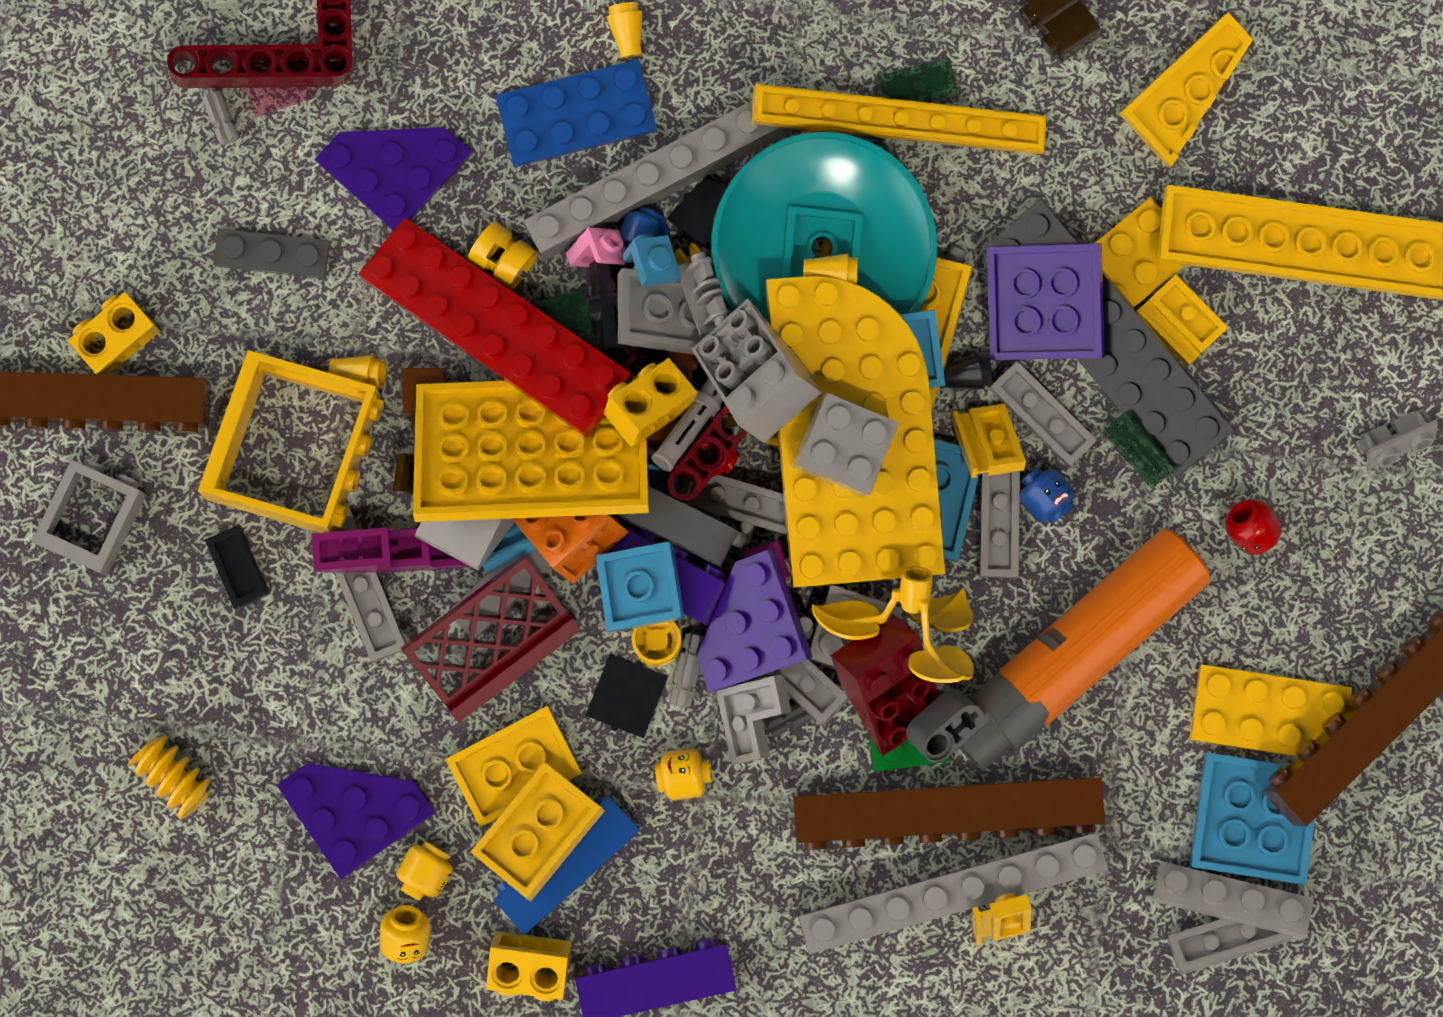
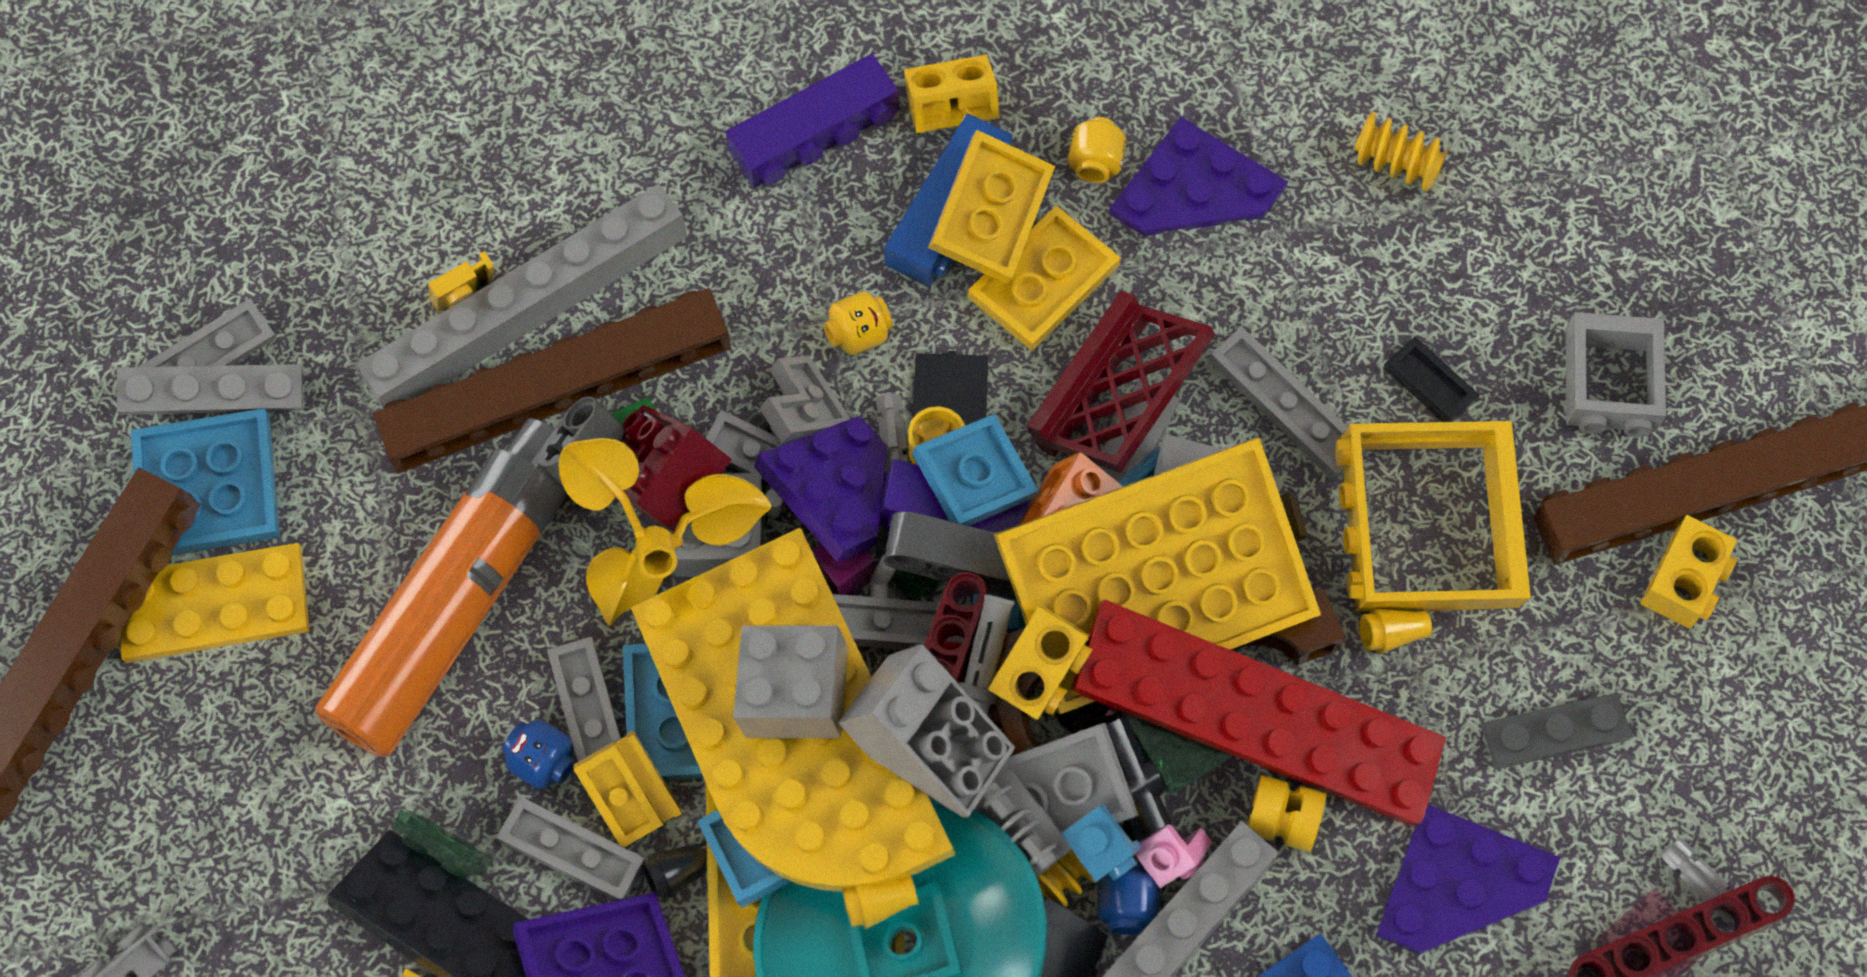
camera: 160 degrees right, 15 degrees down
(377, 551) = (1301, 424): magenta slope -> none
(404, 934) = (1091, 81): yellow head -> none
(1253, 526) = (279, 796): red head -> none

